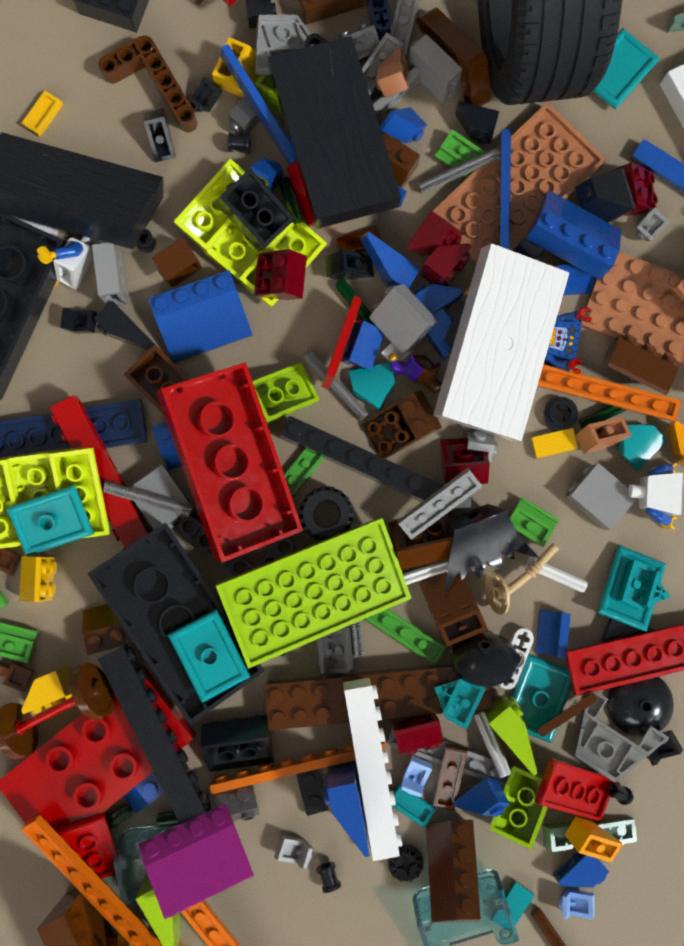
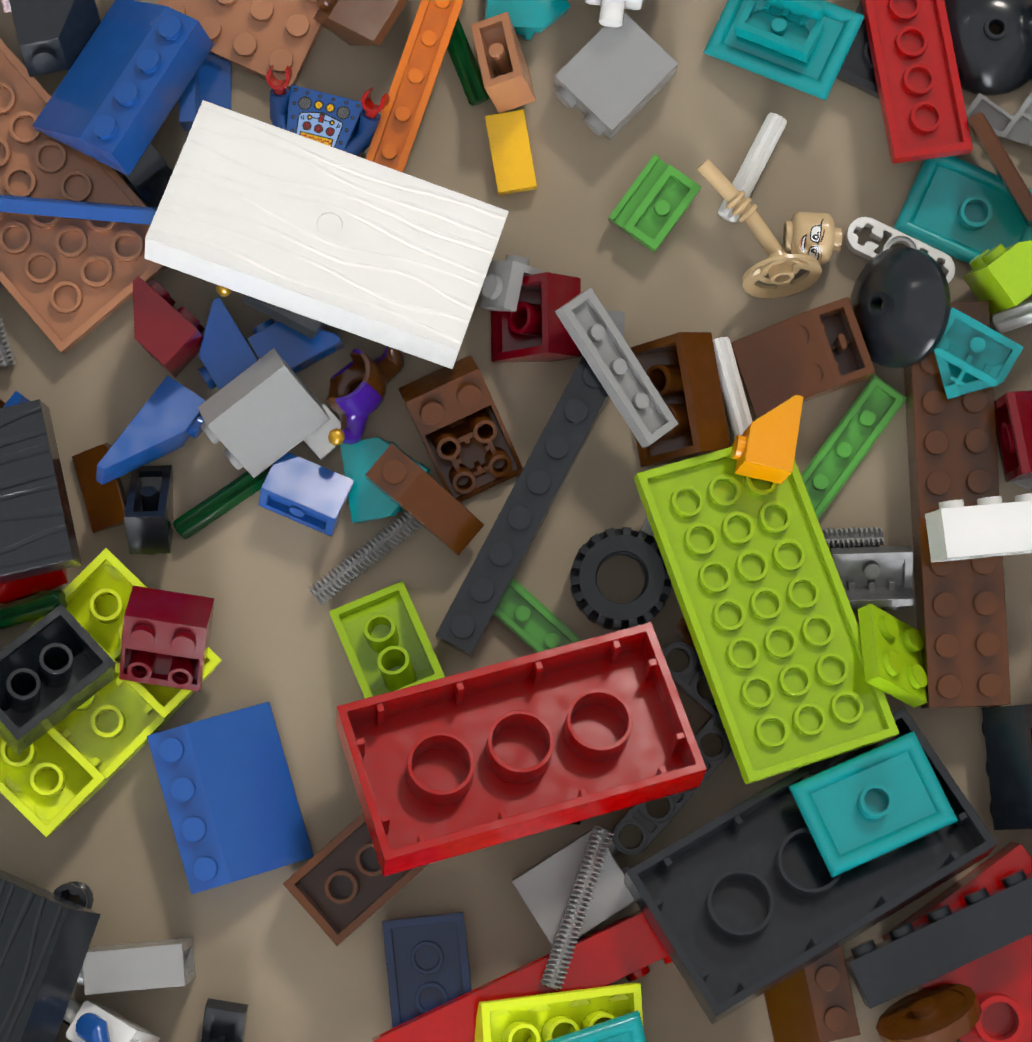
camera: 85 degrees left, 0 degrees up
(121, 327) = (240, 951): black slope -> none
(166, 446) = (475, 869): blue slope -> none
(177, 262) = (121, 838): reddish brown piece -> none
(291, 663) = (892, 656): none -> lime plate
(341, 342) = (303, 530): red tile -> none
(362, 405) = (424, 499): none -> reddish brown slope
(403, 589) = (769, 443): none -> light orange slope
(432, 233) = (107, 340): dark red slope -> none
(482, 541) = (687, 295): black piece -> none
(520, 608) = (812, 235): none -> tan head
(552, 633) = (857, 181): blue panel -> none
(563, 404) = (465, 120): black gear -> none

